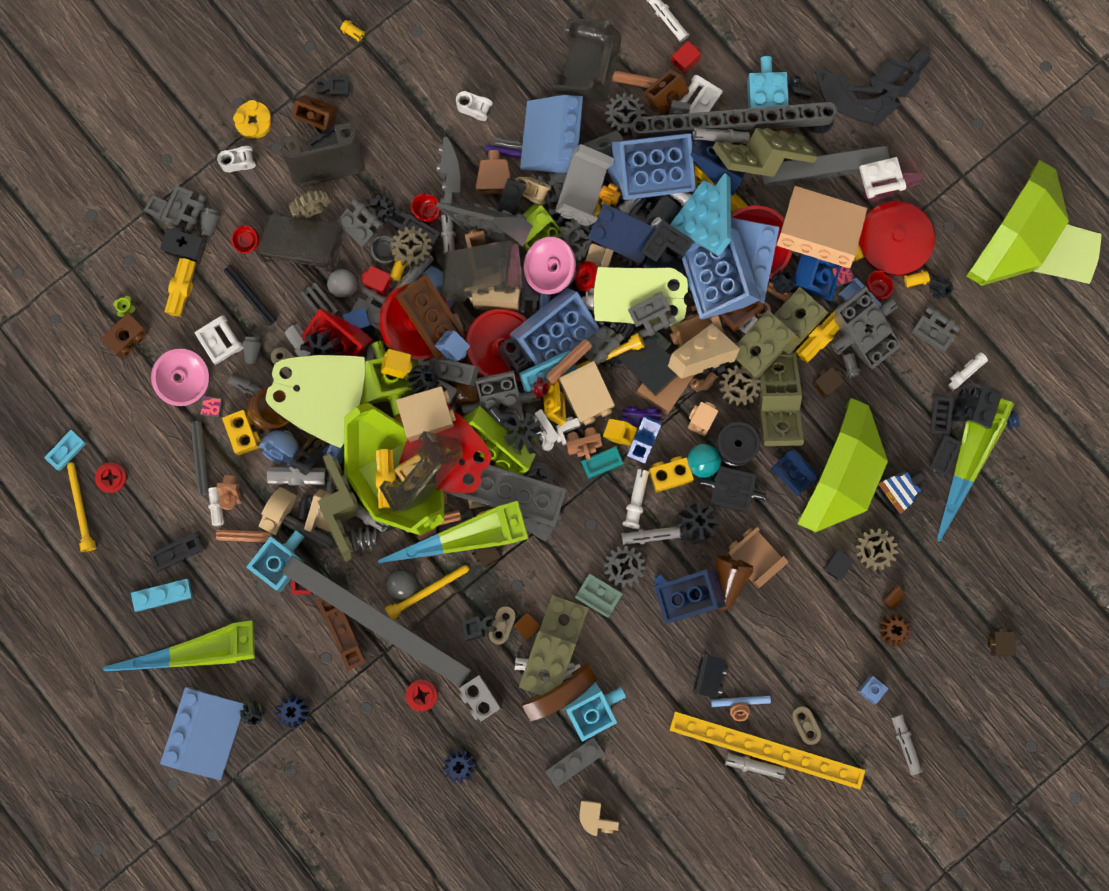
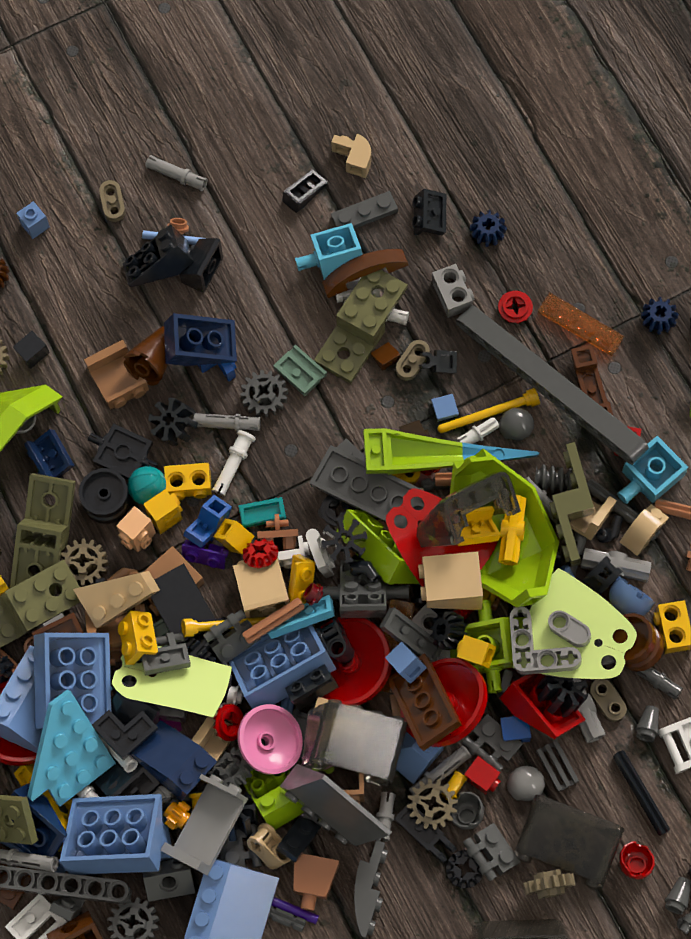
camera: 170 degrees left, 10 degrees down
(317, 392) = (573, 632): none -> light grey piece
(346, 367) = (535, 656): none -> light grey beam
(361, 691) = (580, 324): none -> clear orange plate
(424, 207) = (405, 852): red hair -> none
(433, 569) = (477, 433): none -> white axle
(466, 588) = (445, 407): none -> medium blue tile
(515, 772) = (429, 212): none -> black bracket
(526, 313) = (311, 686): none -> black bracket
(593, 410) = (260, 559): none -> red gear
(644, 760) = (295, 200): none -> black slope
(676, 322) = (137, 636): none -> yellow bracket
(683, 439) = (163, 510): none -> yellow brick
(747, 671) = (158, 259): none -> black slope
(767, 750) = (161, 185): yellow plate -> none
(906, 744) = (14, 169): light grey pin -> none

